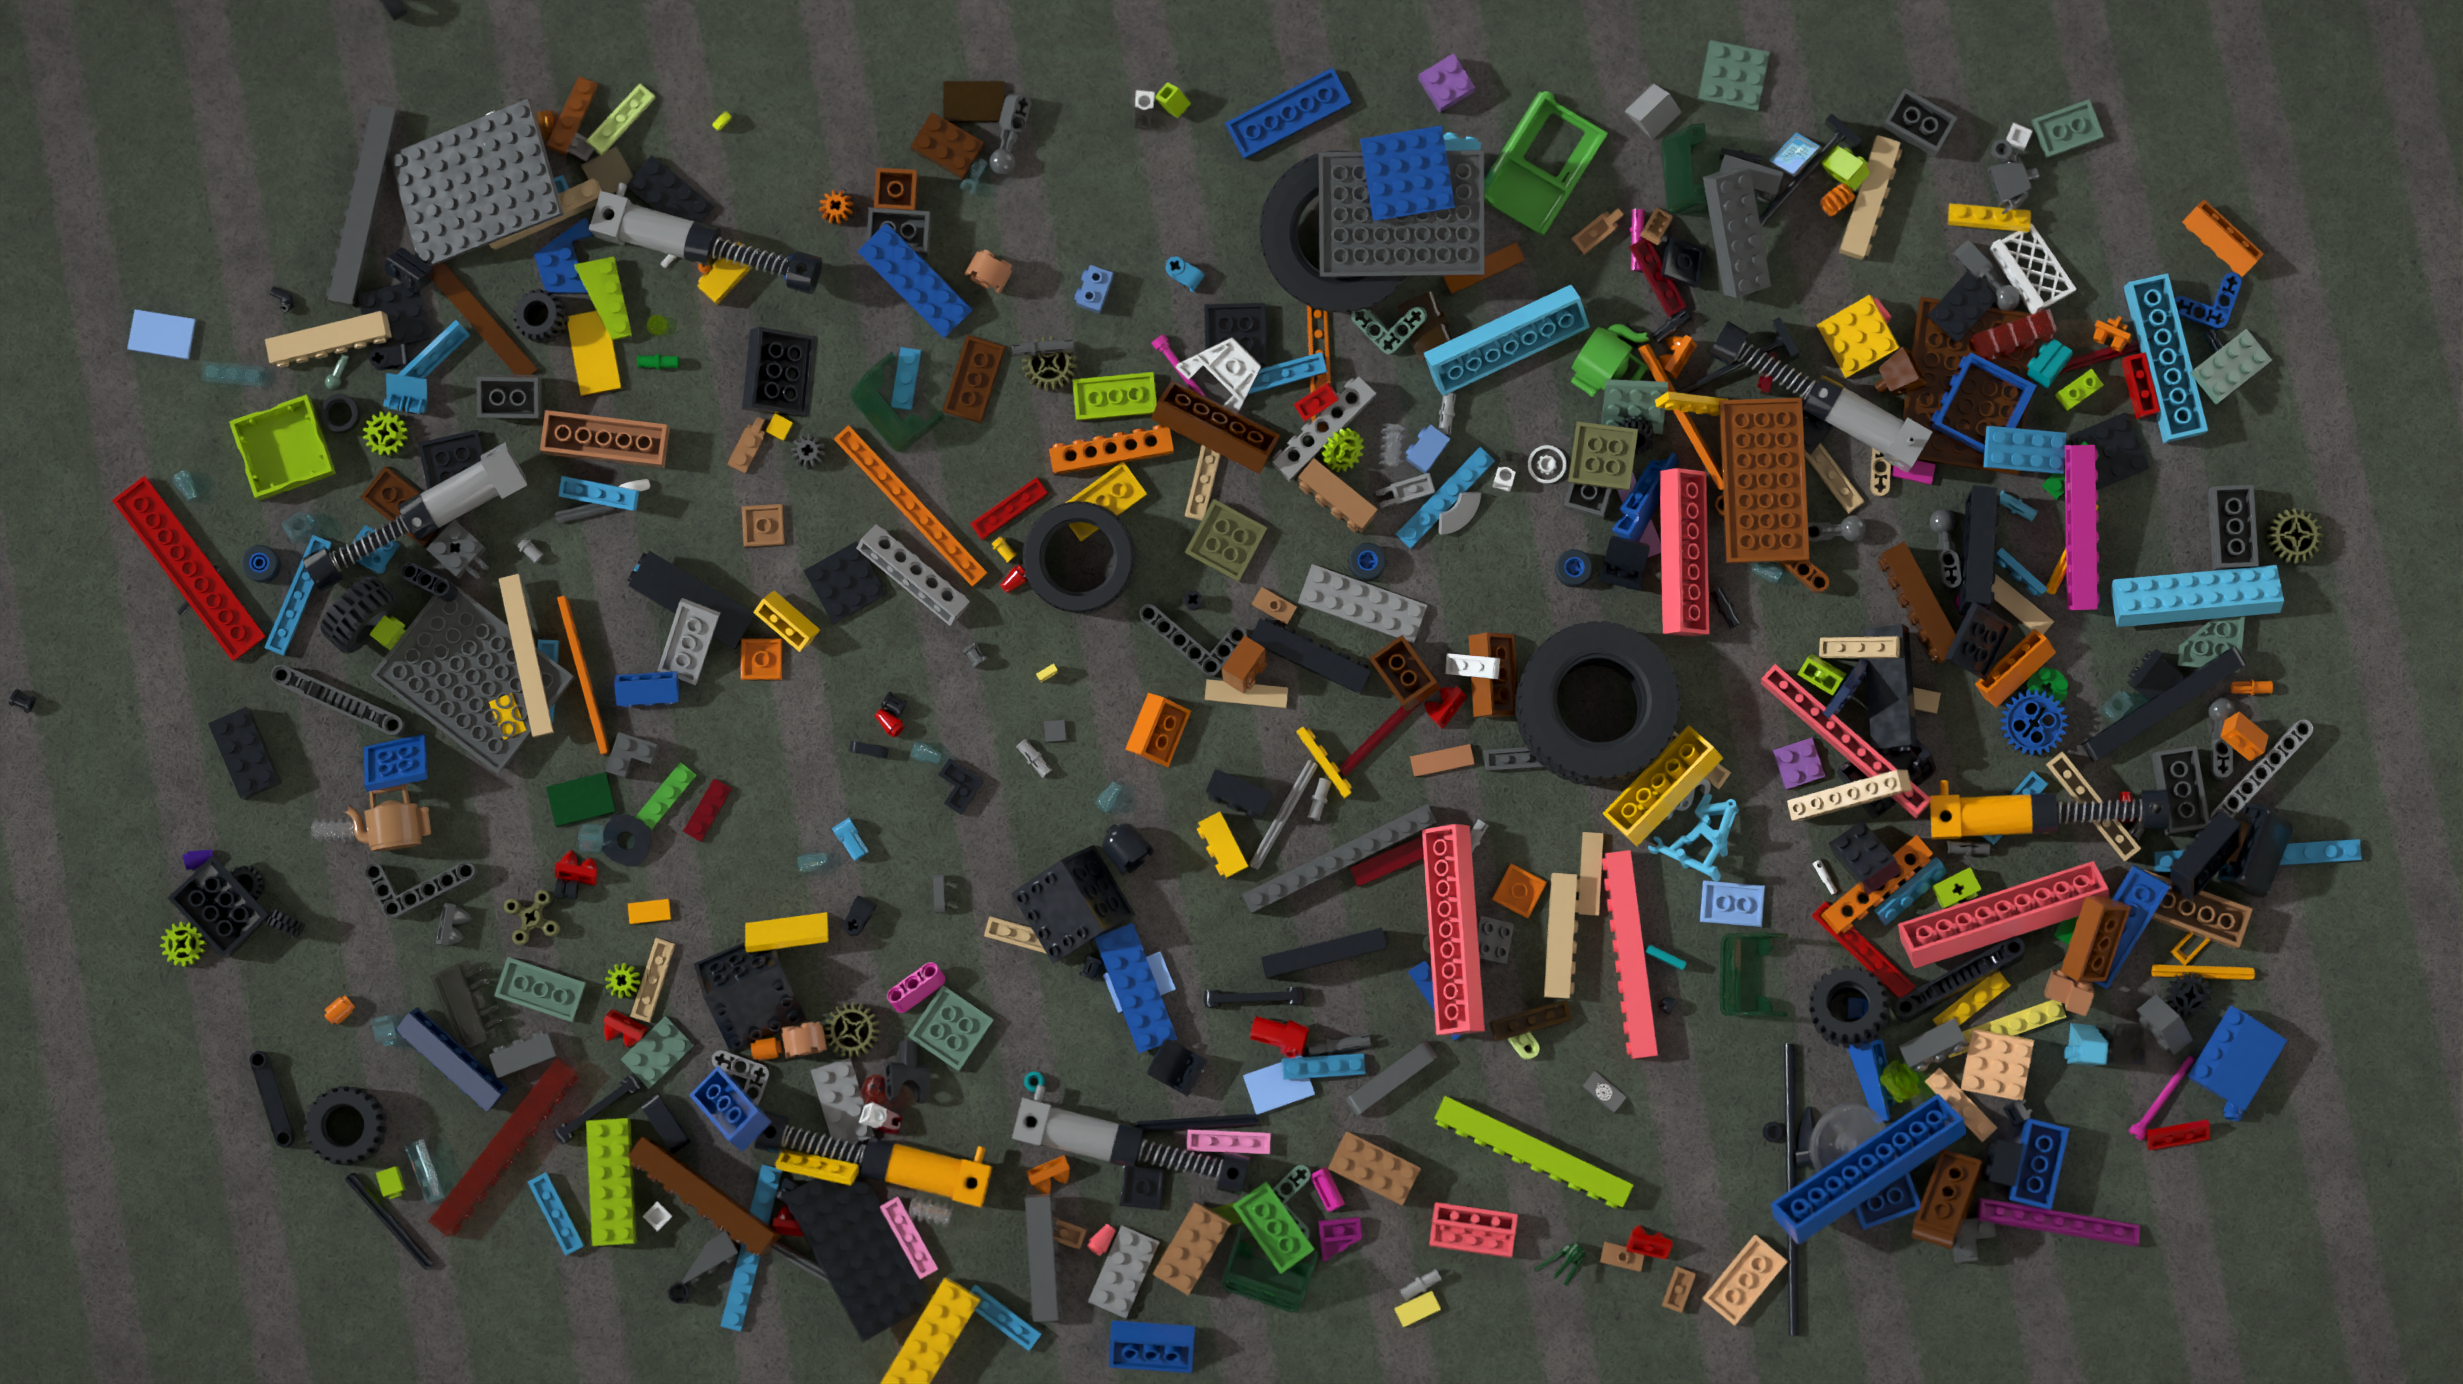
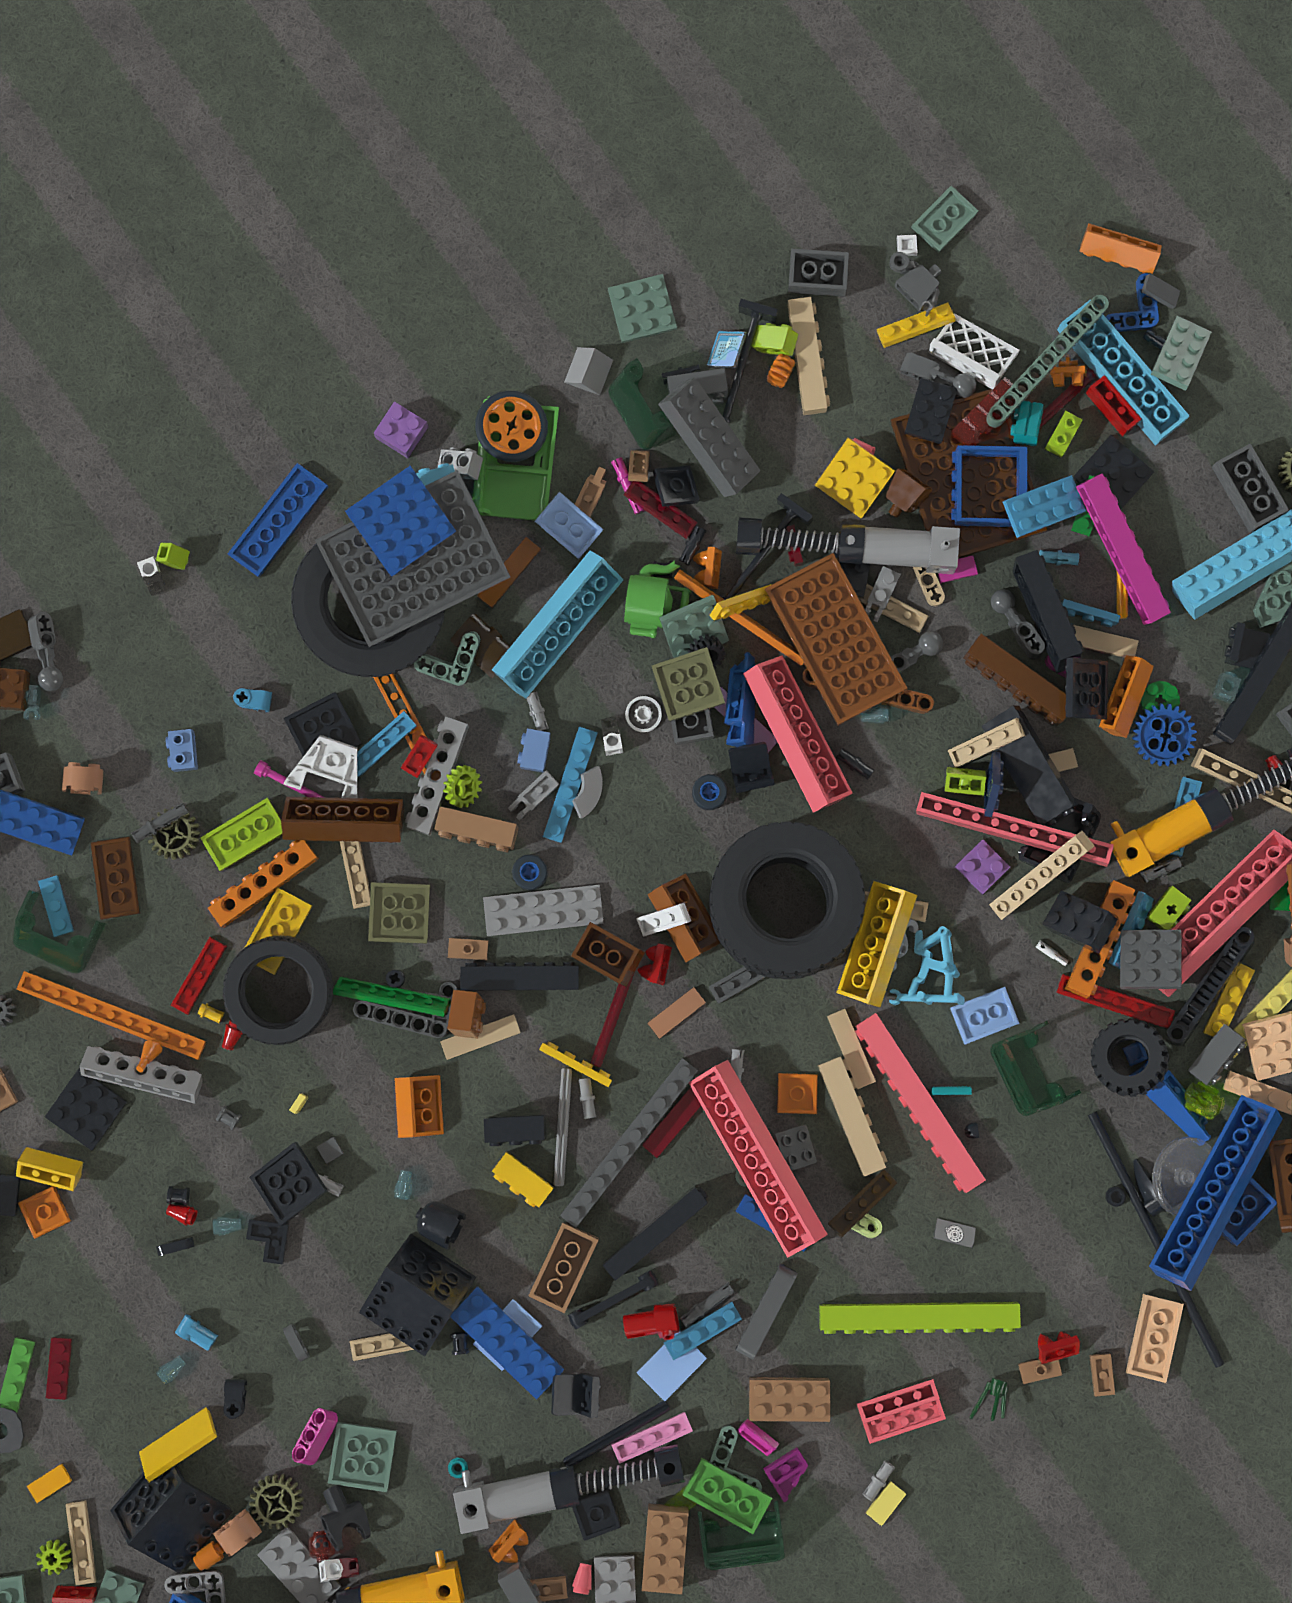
camera: 25 degrees left, 0 degrees up
(932, 557) = (150, 1051): none -> orange cone
(1002, 742) = (288, 1184): none -> black plate
(1182, 615) = (392, 996): none -> green tile
(1222, 943) = (563, 1267): none -> medium nougat brick
(1392, 445) = (503, 761): clear piece -> none
(1490, 139) = (466, 462): none -> light grey brick
(1533, 147) = (500, 449): none -> wedge
(1562, 250) = (568, 525): none -> light blue tile
(1831, 457) = (882, 591): none -> light grey hinge
(1914, 924) = (1151, 959): none -> dark grey plate
(2104, 308) = (1051, 353): none -> sand green beam
(2241, 297) = (1160, 291): none -> dark grey tile

